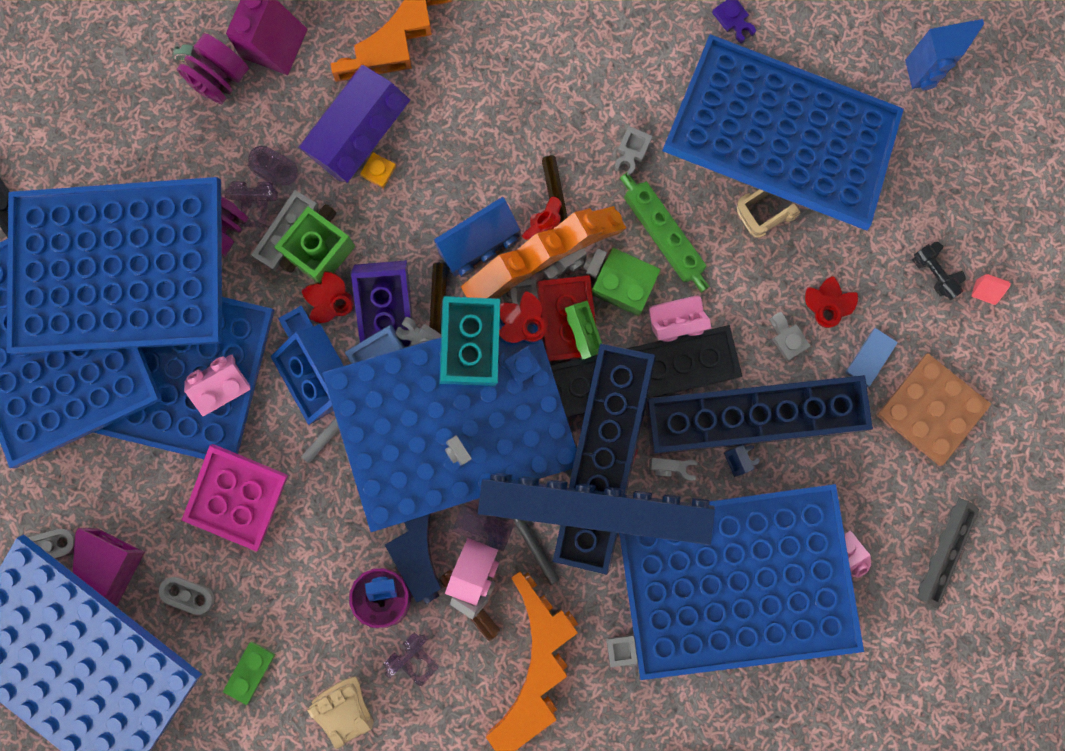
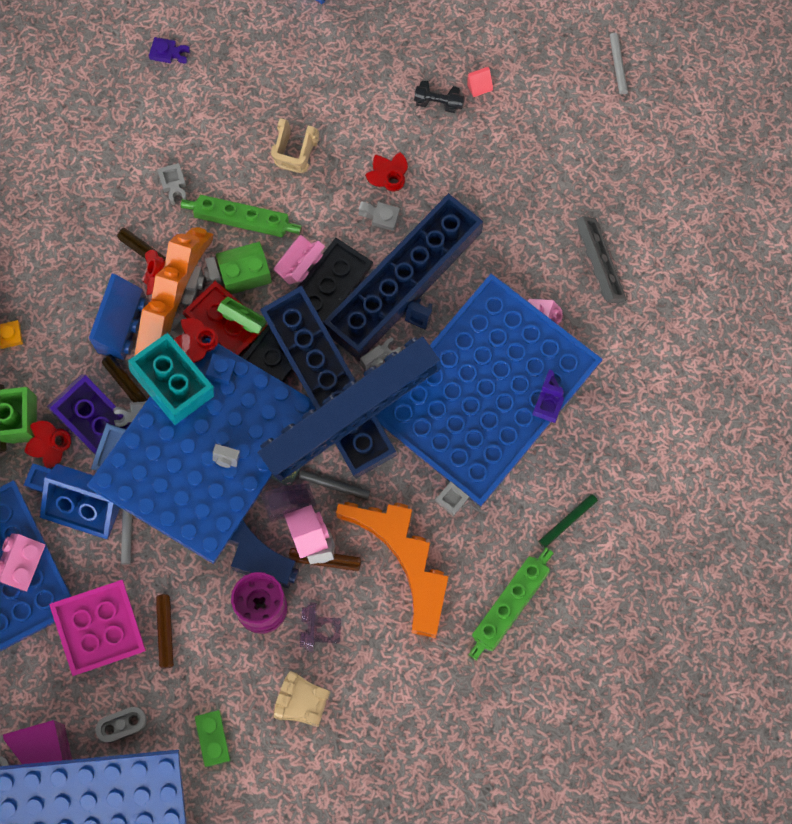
camera: 40 degrees left, 10 degrees down
(287, 547) = (164, 629): none -> reddish brown axle
(381, 589) = (254, 590): blue plate -> none
(783, 646) = (550, 399): none -> dark purple slope
(786, 132) = (262, 89): blue plate -> none
(872, 356) = (444, 180): medium blue tile -> none
(934, 409) = (512, 183): nougat plate -> none

